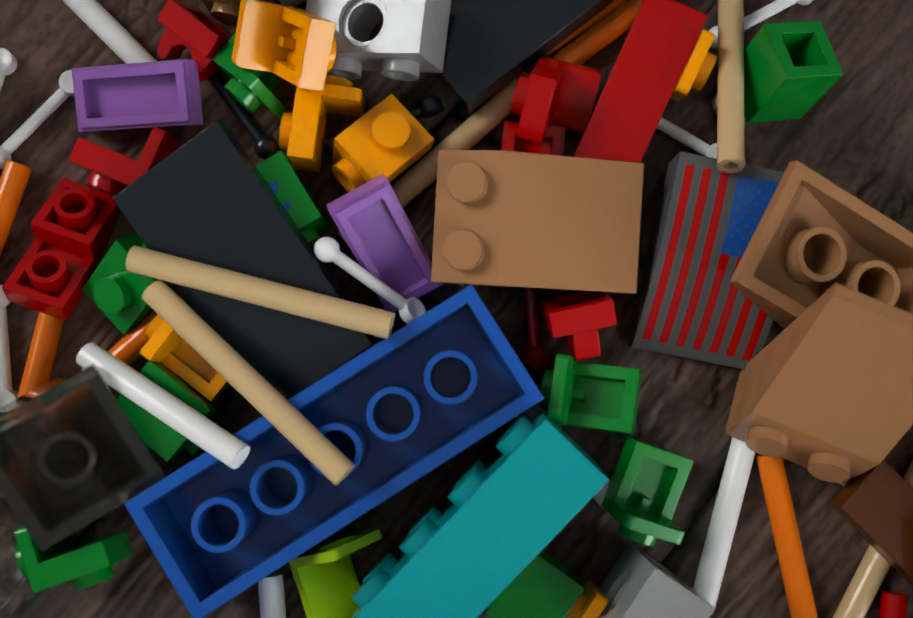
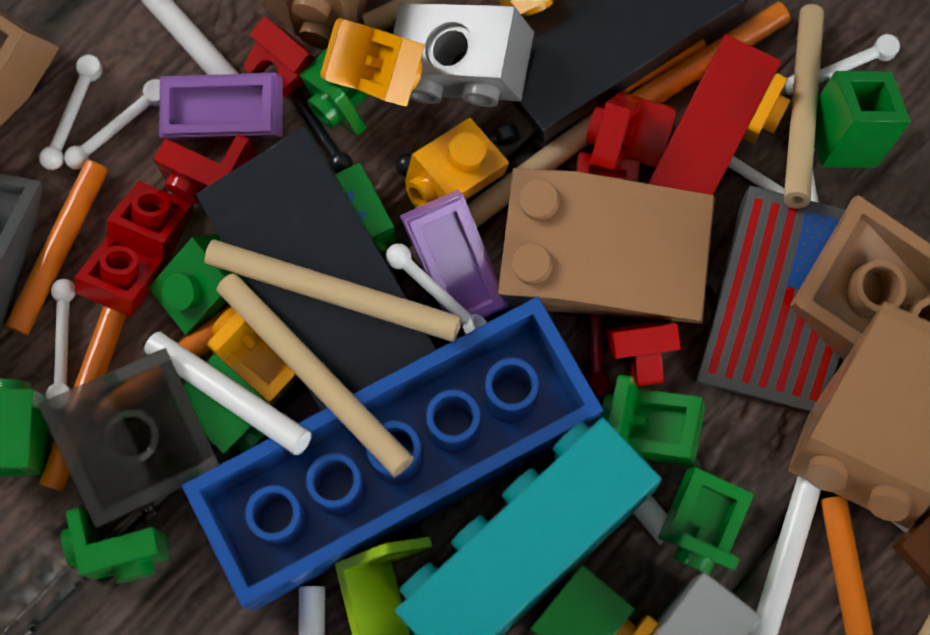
camera: 10 degrees right, 10 degrees down
(306, 126) = (382, 145): light orange bracket -> none

